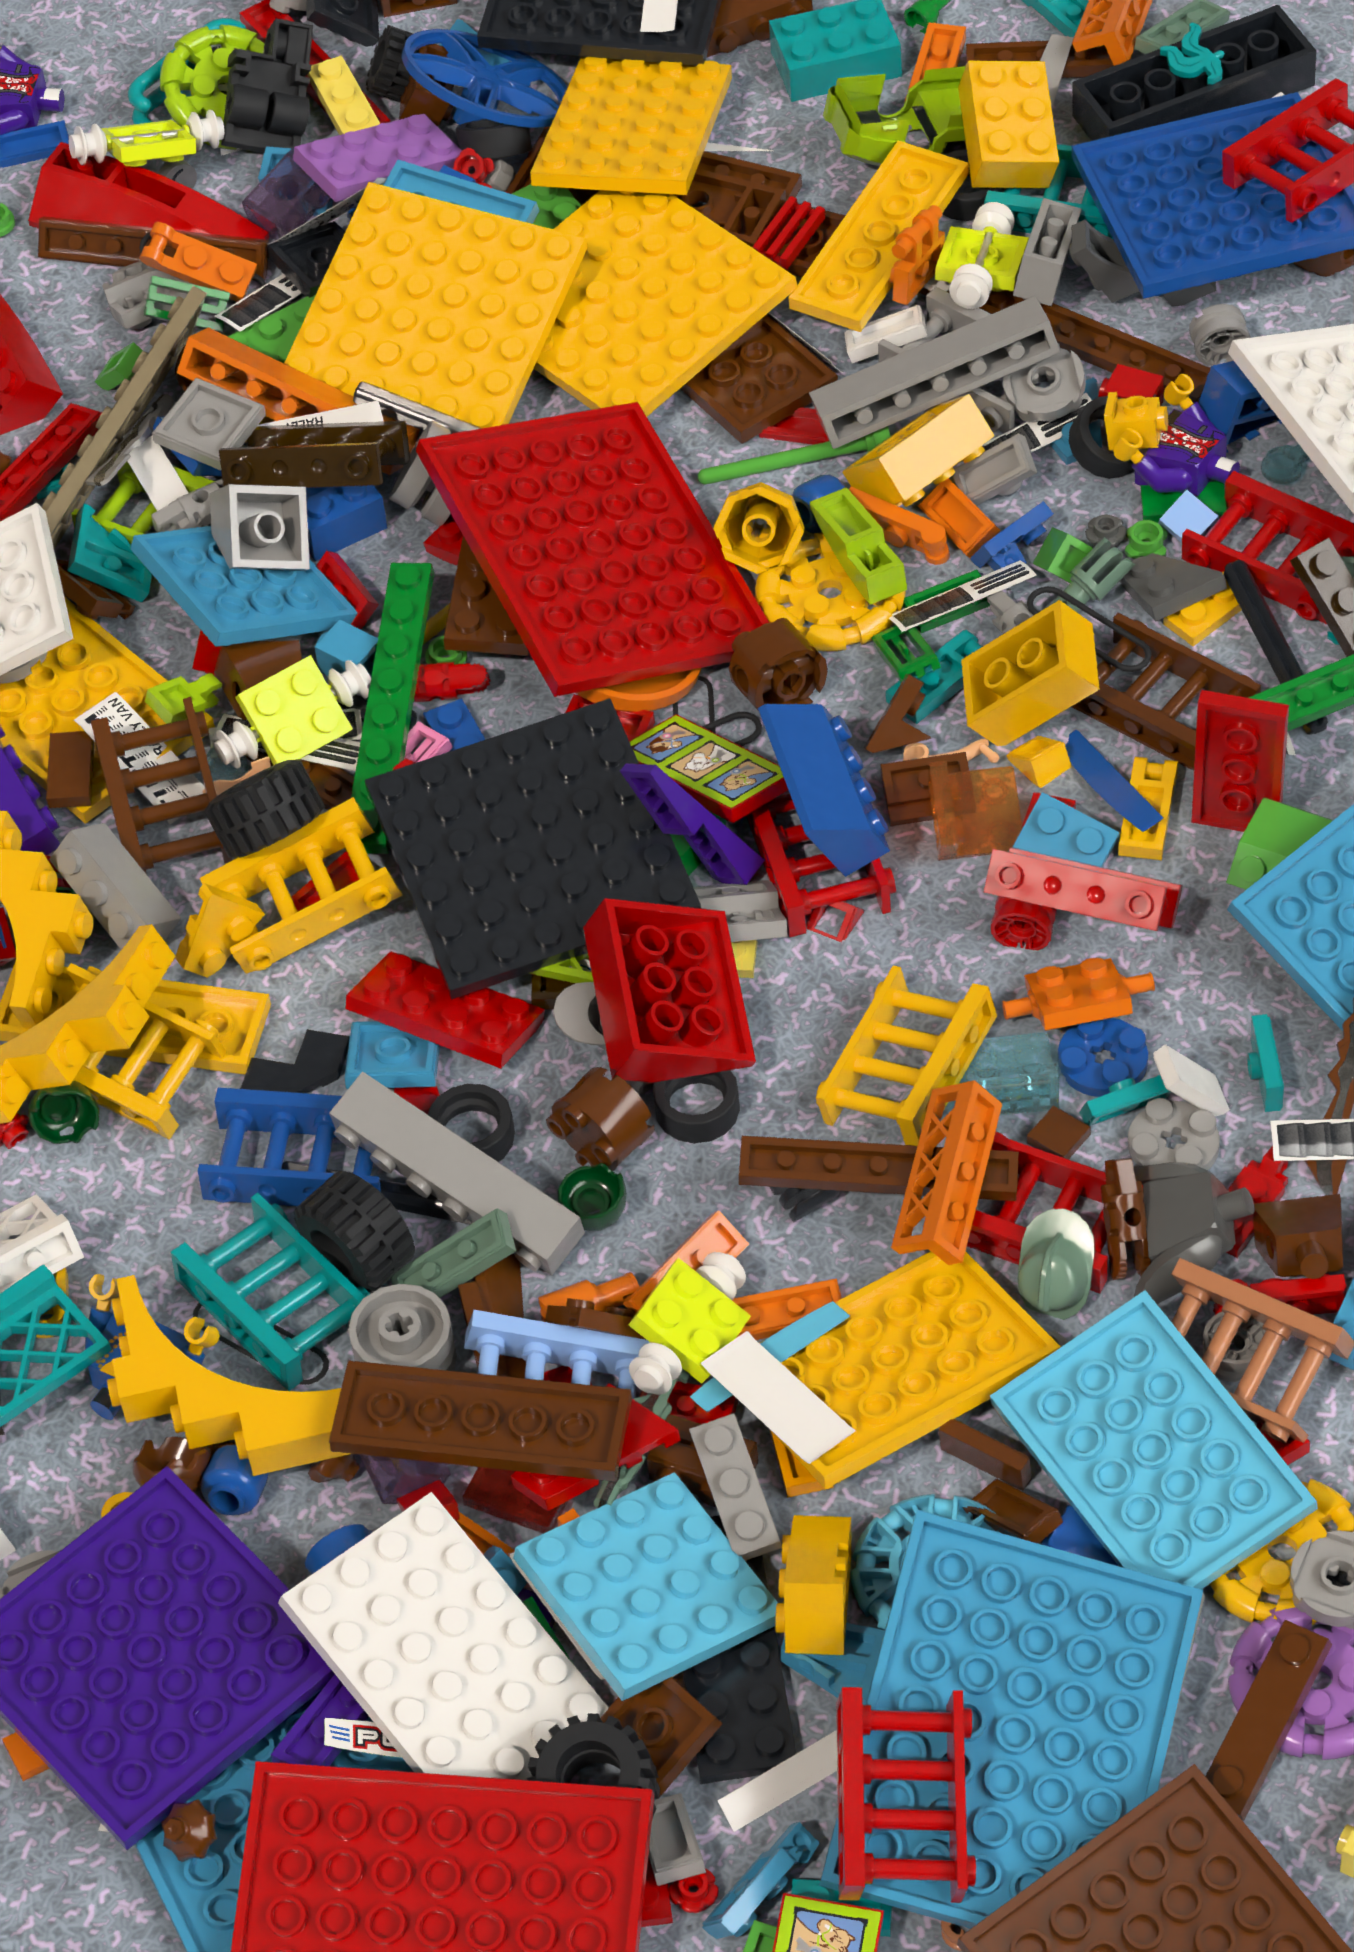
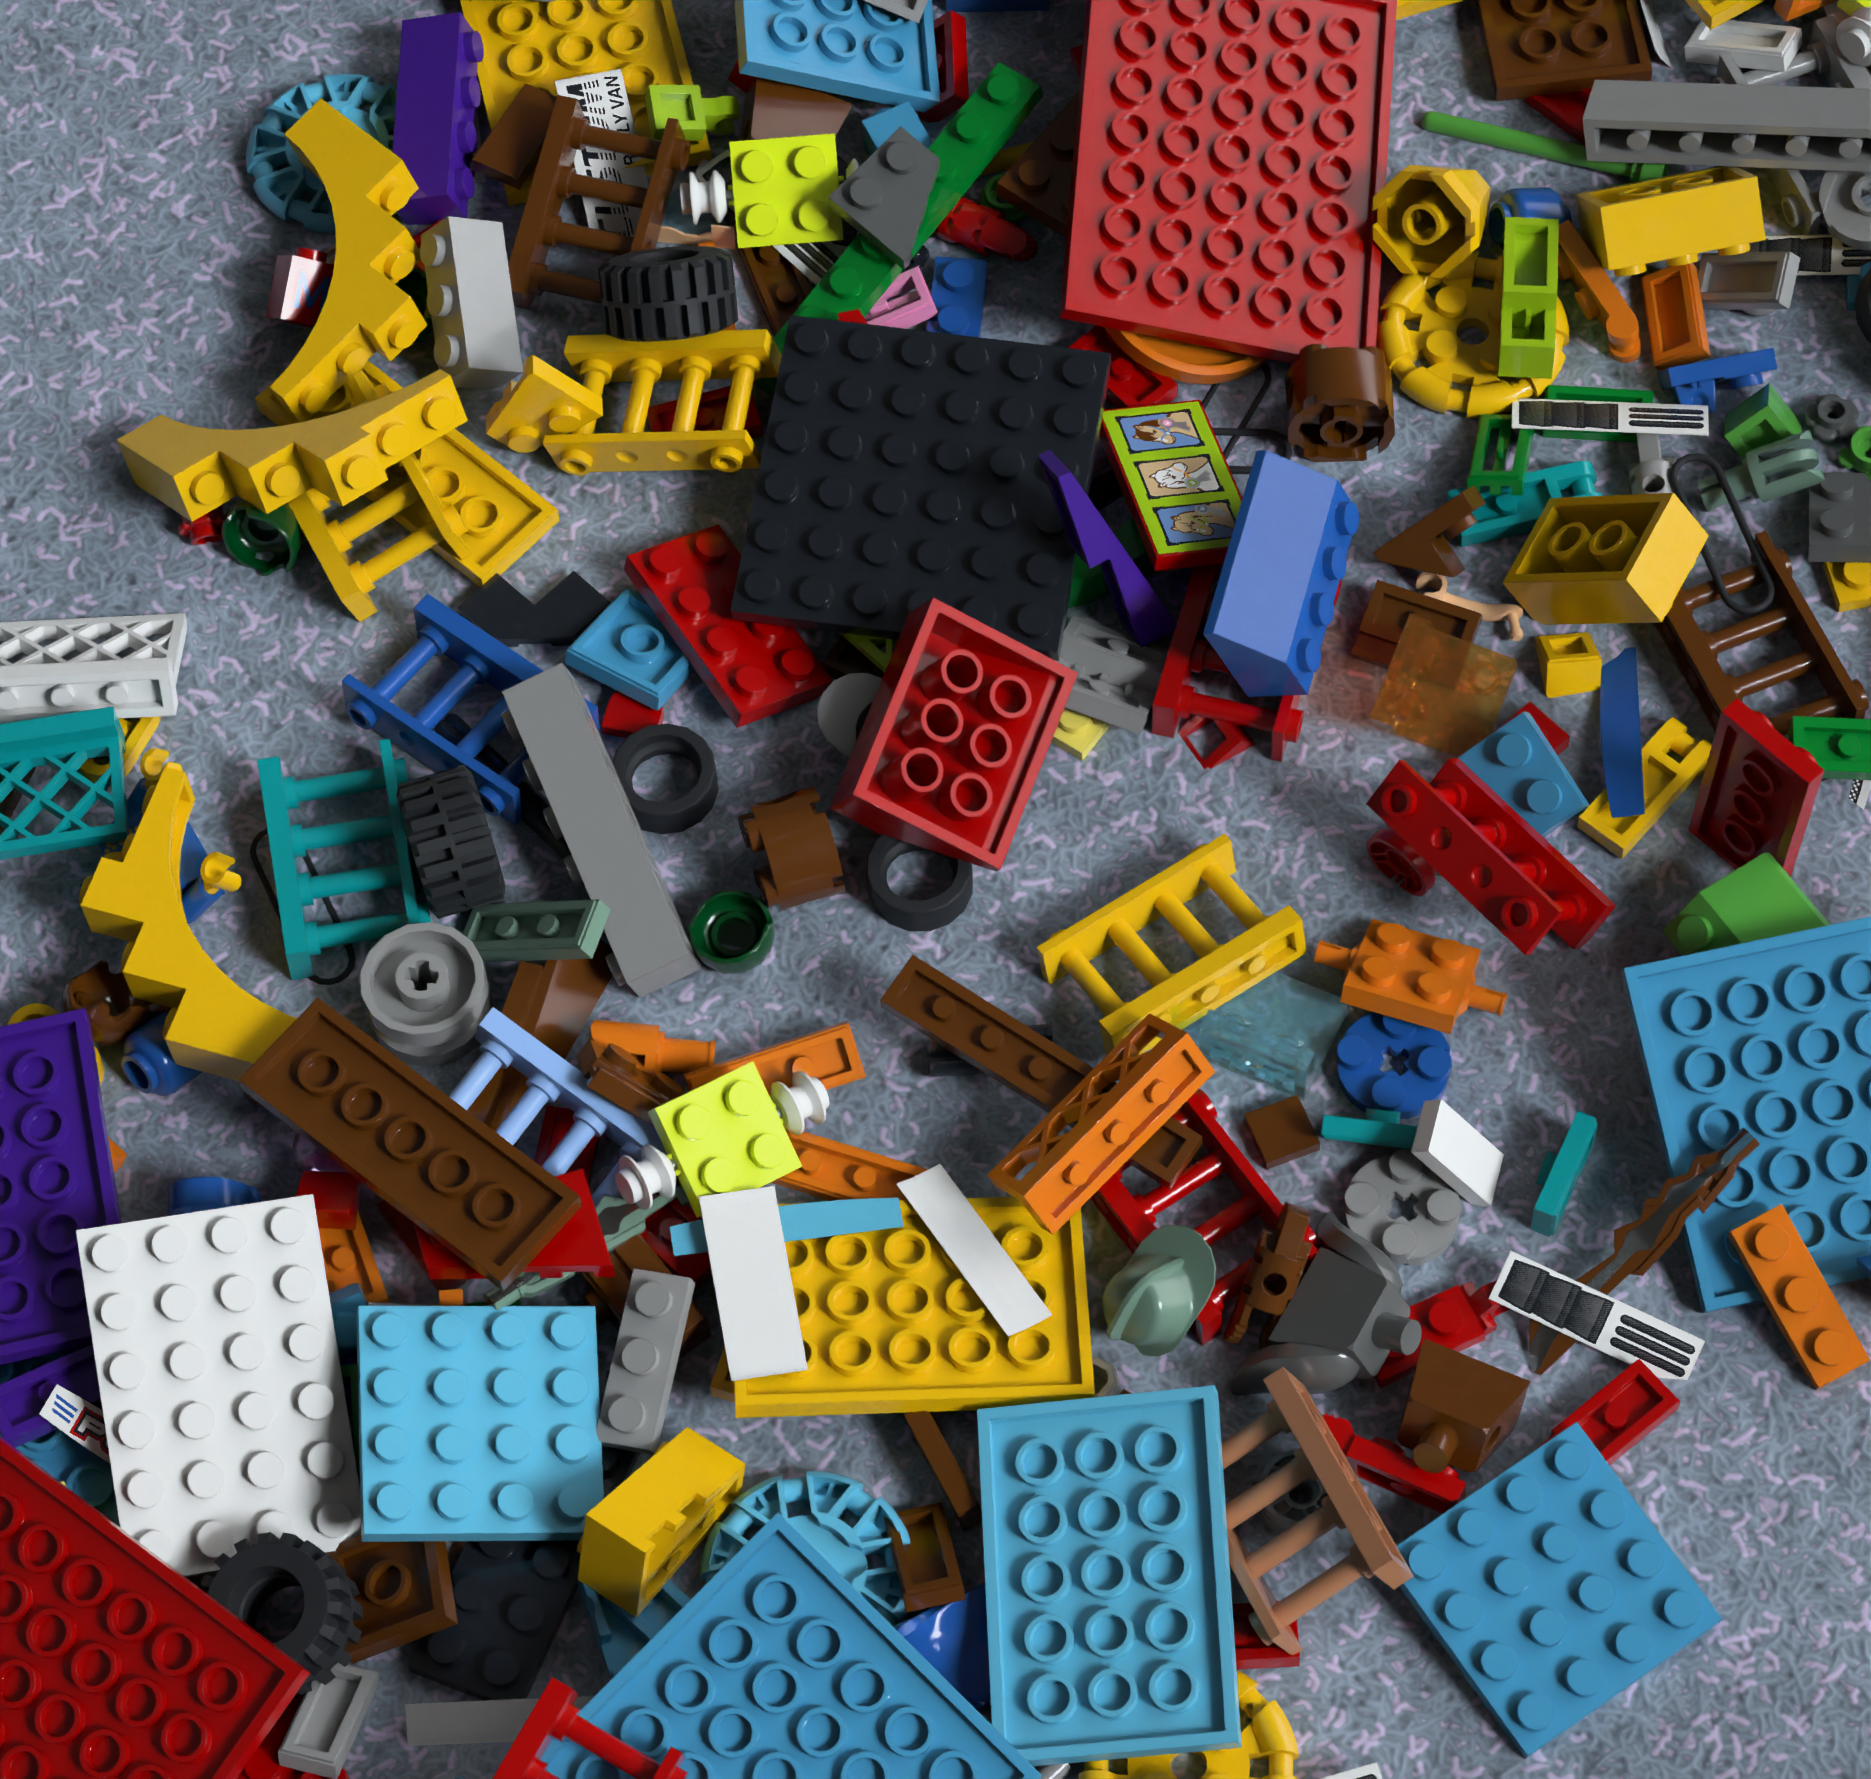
camera: 30 degrees right, 10 degrees up
(377, 678) = (889, 195): none -> dark grey wing
(910, 1305) = (974, 1250): none -> white sticker

